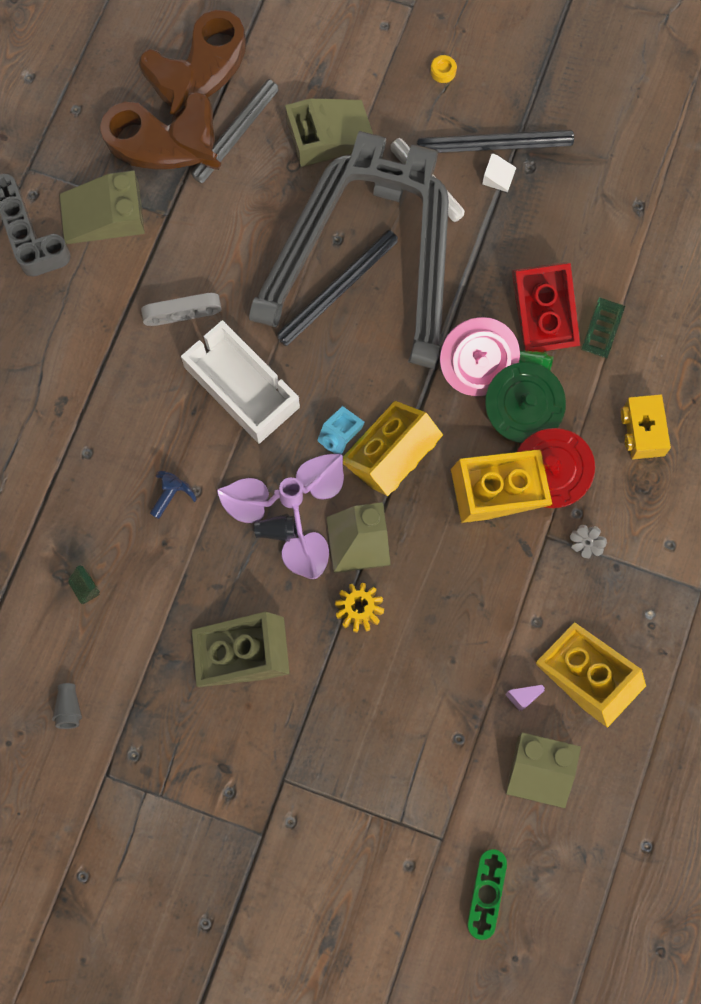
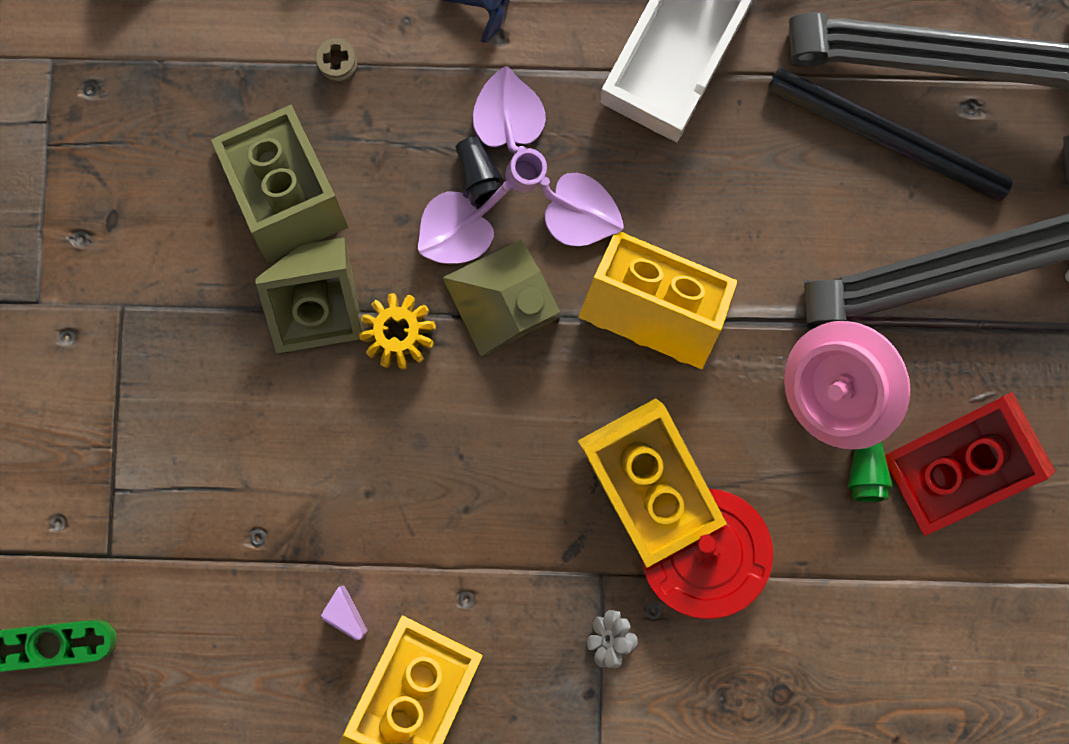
camera: 70 degrees right, 10 degrees up
(179, 600) = (325, 53): none -> dark tan bush
(321, 651) = (311, 297): none -> olive slope
(339, 430) = (660, 213): medium azure bracket -> none
(524, 401) = (799, 477): dark green piece -> none
(543, 770) = (247, 673): olive slope -> none
(608, 306) = (1005, 563): clear green slope -> none
(650, 413) = (849, 678): yellow brick -> none

